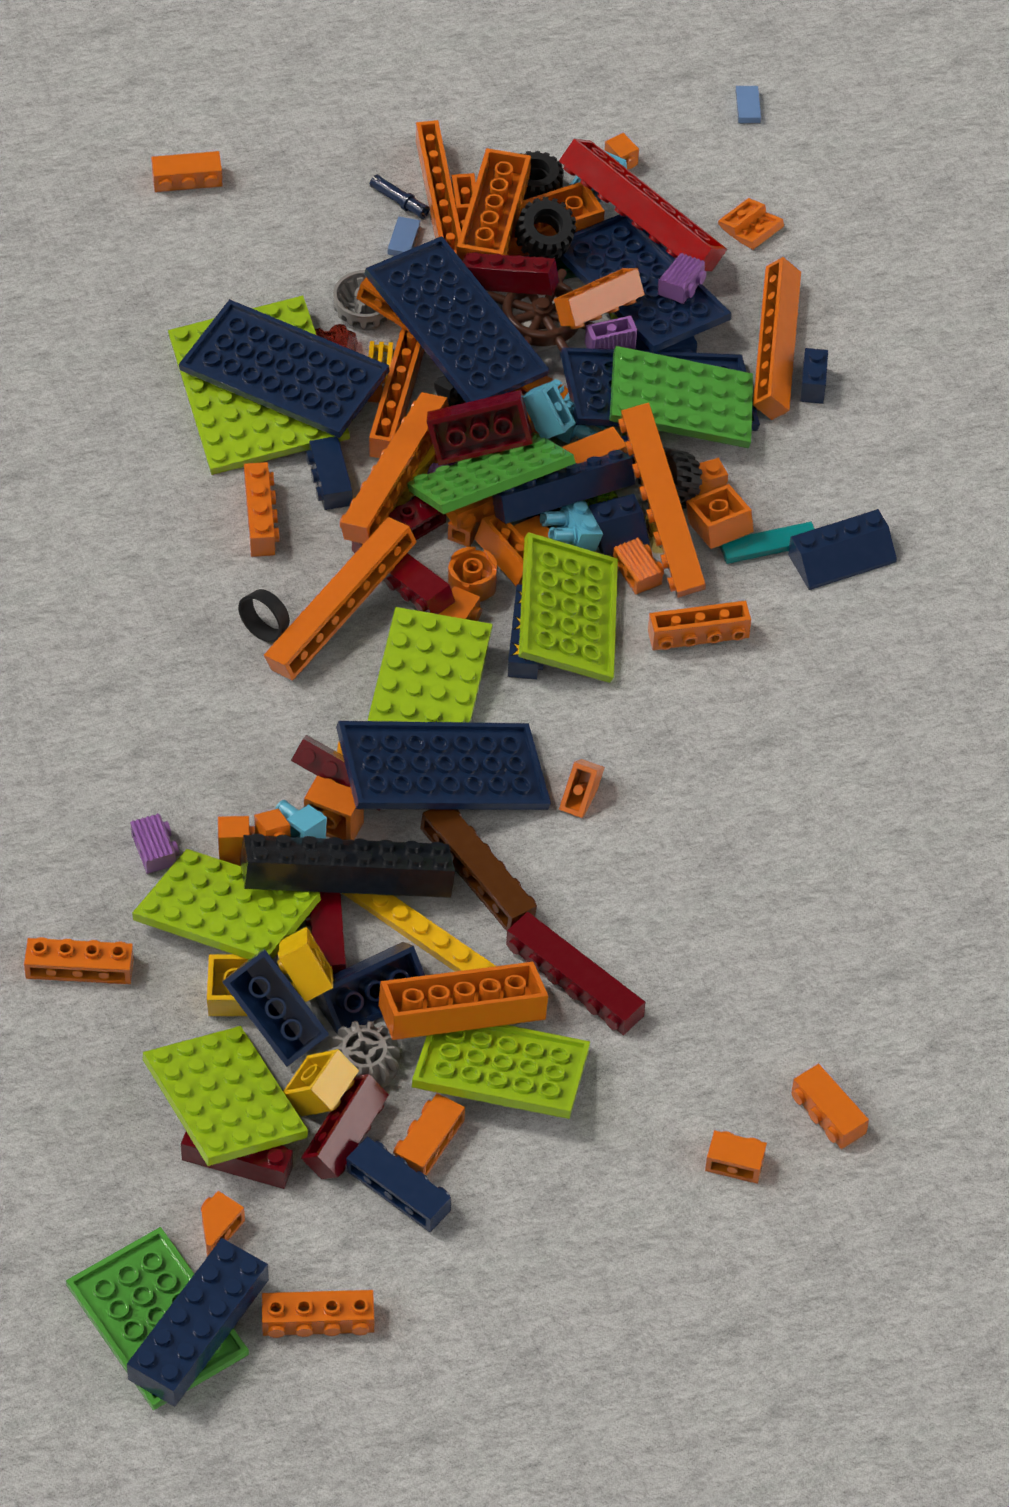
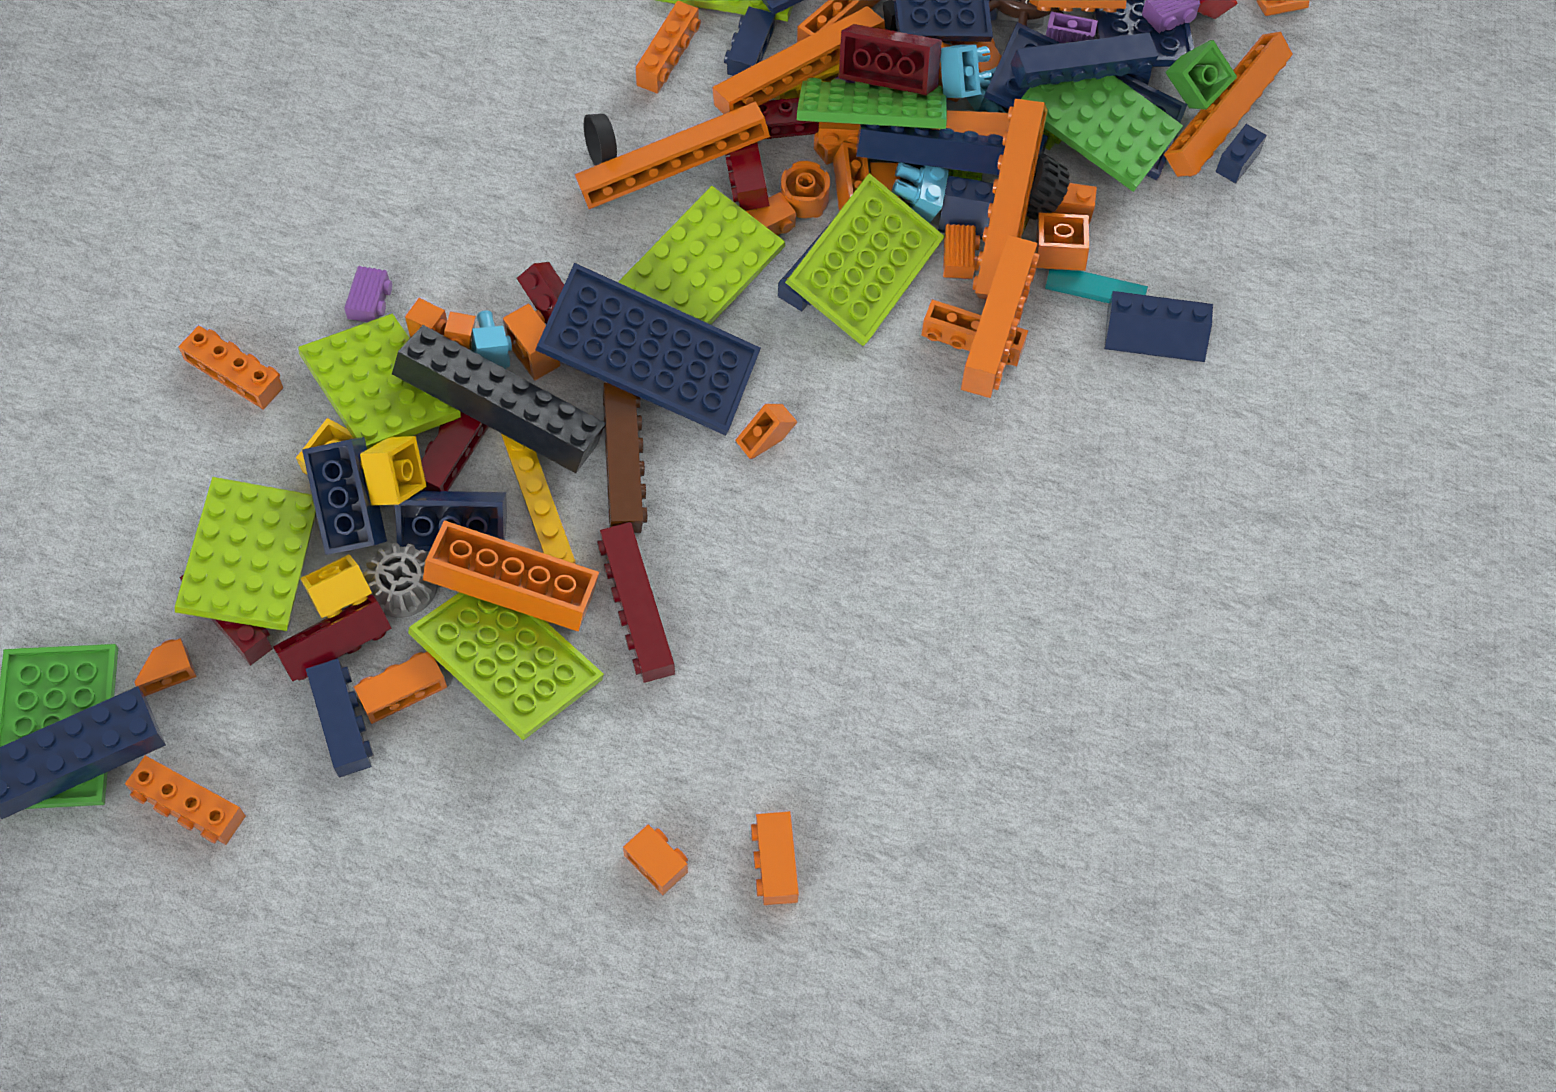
camera: 30 degrees right, 10 degrees up
(644, 354) = (1083, 60): none -> dark blue brick
(722, 597) = (1000, 317): none -> orange brick
(743, 324) = (1201, 75): none -> bright green slope

